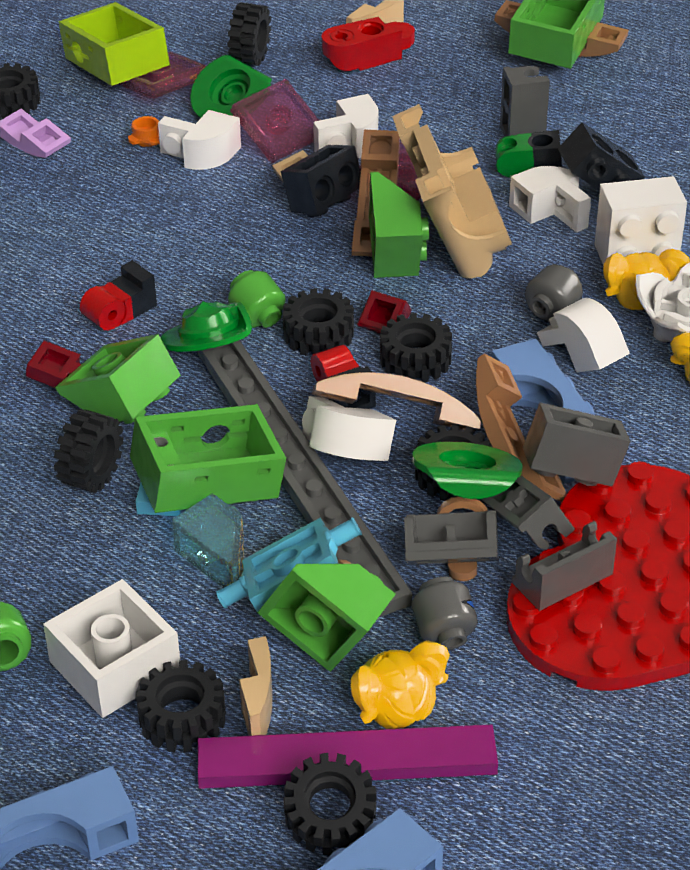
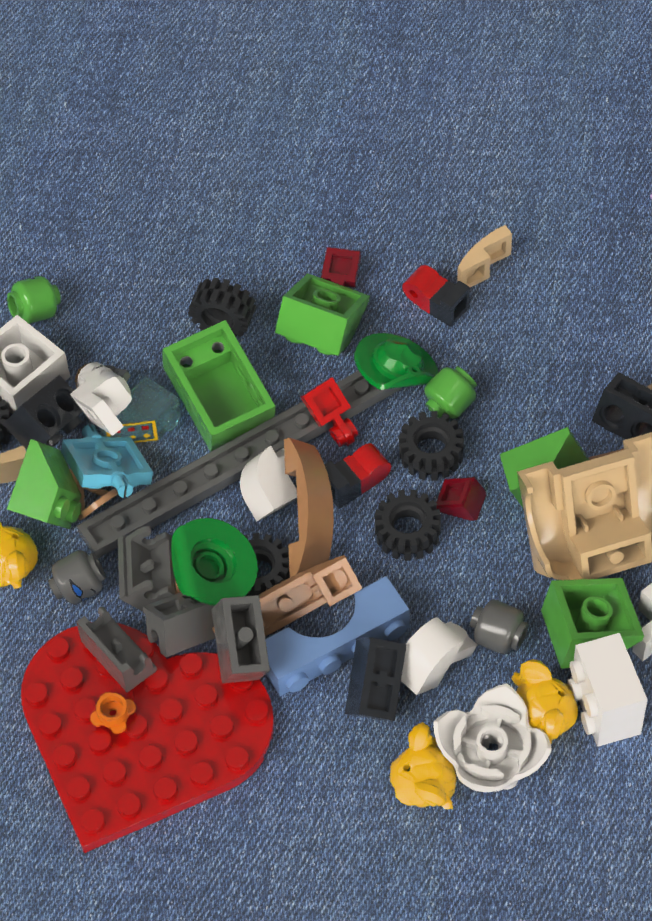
camera: 85 degrees right, 15 degrees up
(83, 262) = (476, 263): none -> tan slope
(199, 549) = (102, 394): none -> white plate
(211, 612) = (46, 415): none -> black brick
(259, 374) = (325, 405): none -> red plate
(561, 231) = (588, 611): none -> bright green slope
(615, 373) = (375, 678): none -> black hinge
(646, 577) = (108, 702): none -> orange plate

